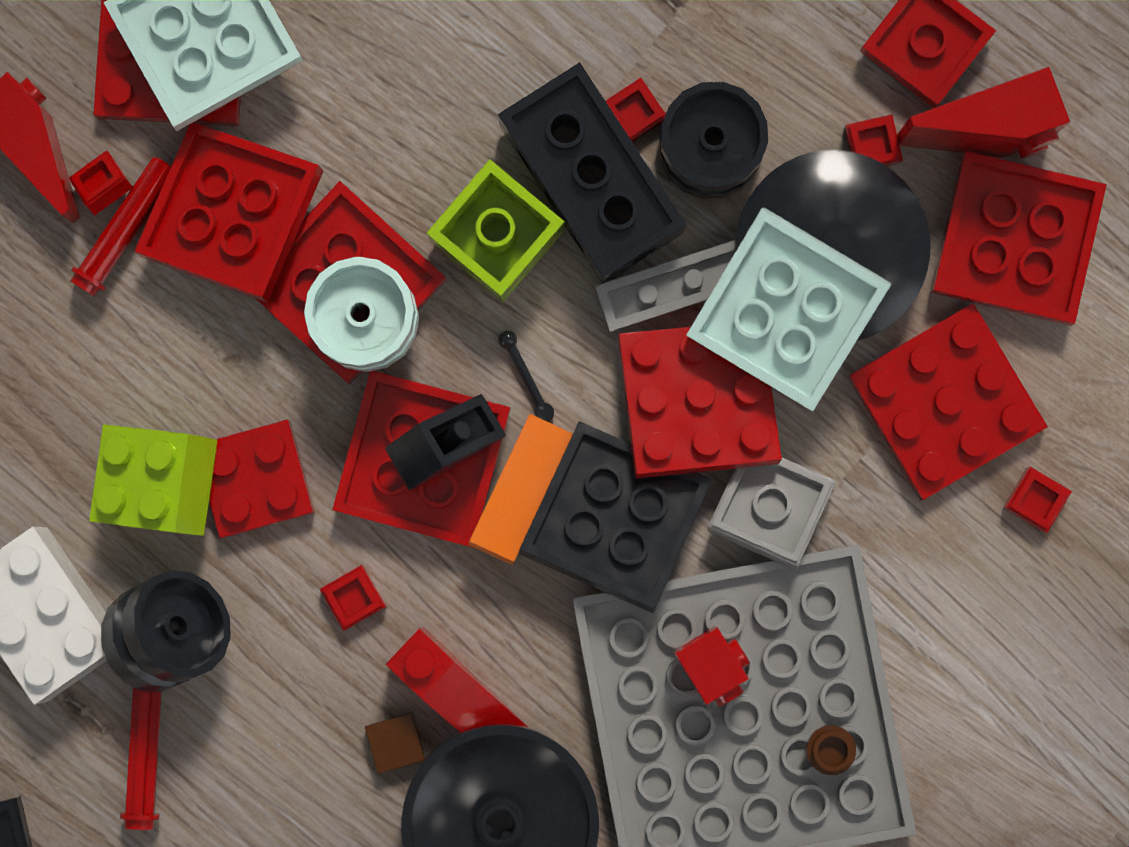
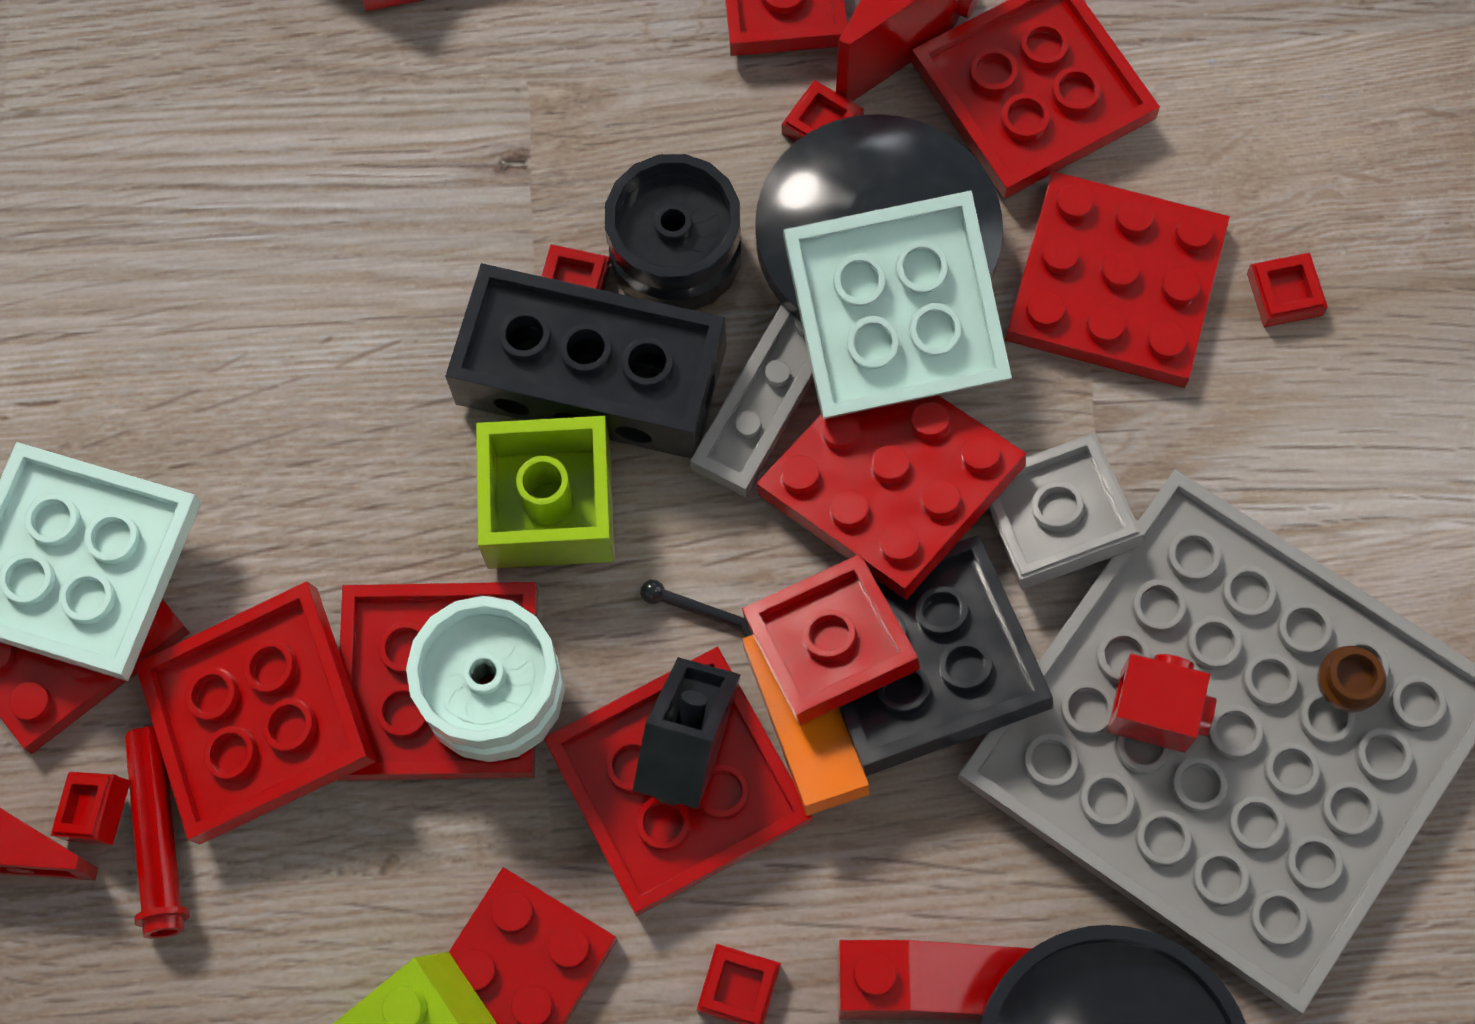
camera: 45 degrees left, 15 degrees down
(568, 463) = (830, 639): none -> plate

